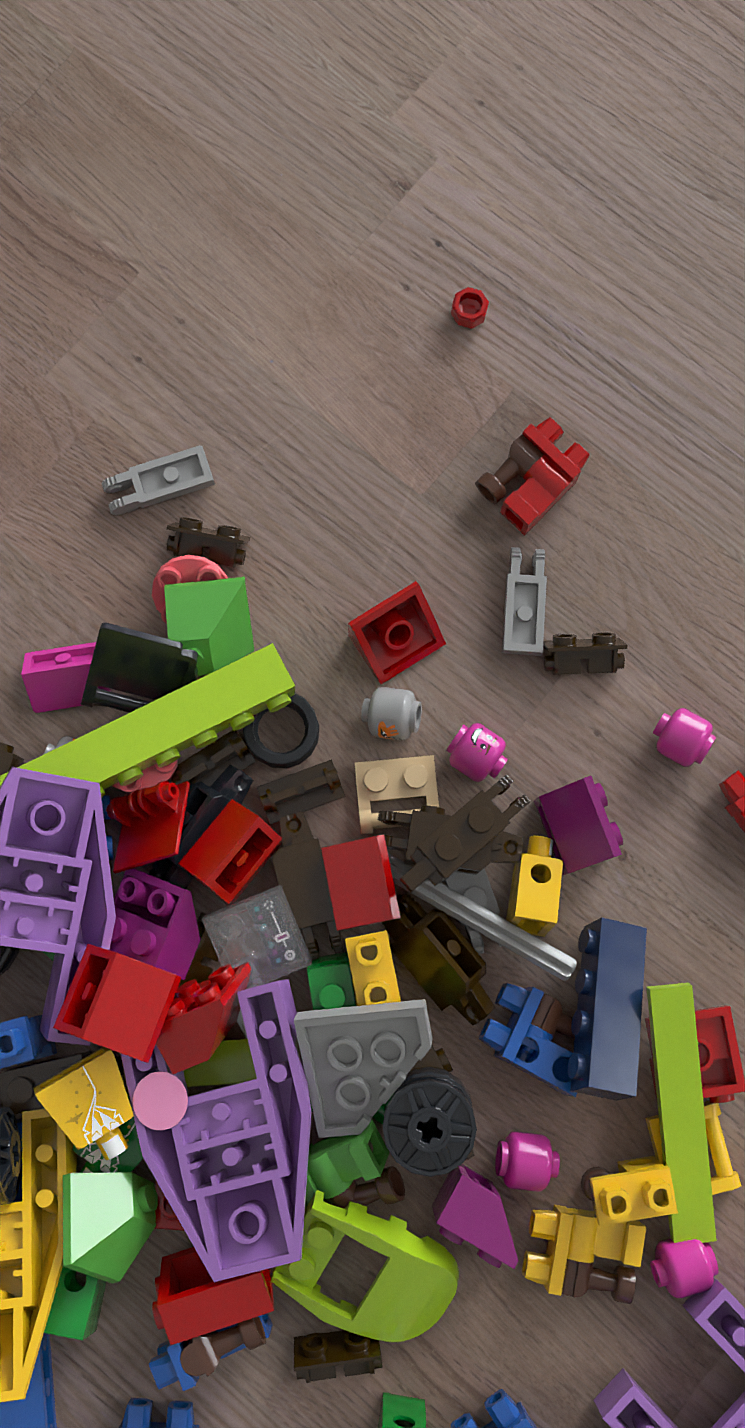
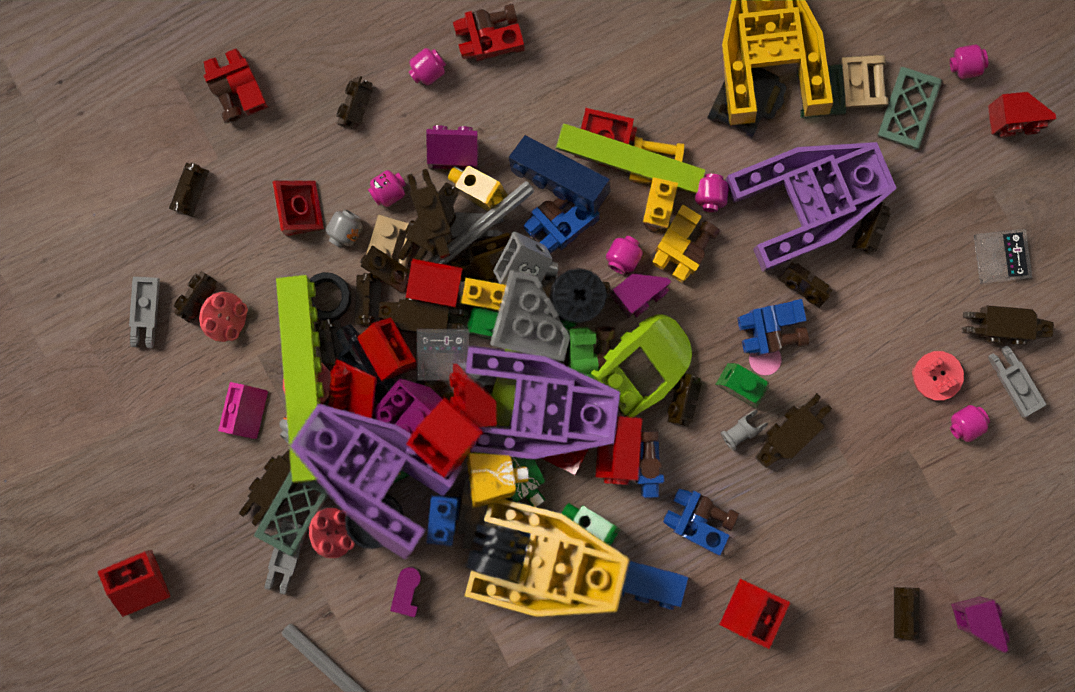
camera: 70 degrees left, 5 degrees up
(106, 1222) = (560, 492): bright green slope -> none
(136, 665) = (256, 362): black piece -> none
(160, 1101) = (507, 437): bright pink sticker -> none
(210, 620) = (247, 314): bright green slope -> none
(355, 800) = (386, 269): none -> dark brown hinge
(359, 473) = (189, 189): none -> dark brown hinge
(456, 1009) = (525, 256): none -> light grey torso
(469, 307) = (112, 80): red tile -> none
(524, 606) = (311, 125): light grey hinge -> none

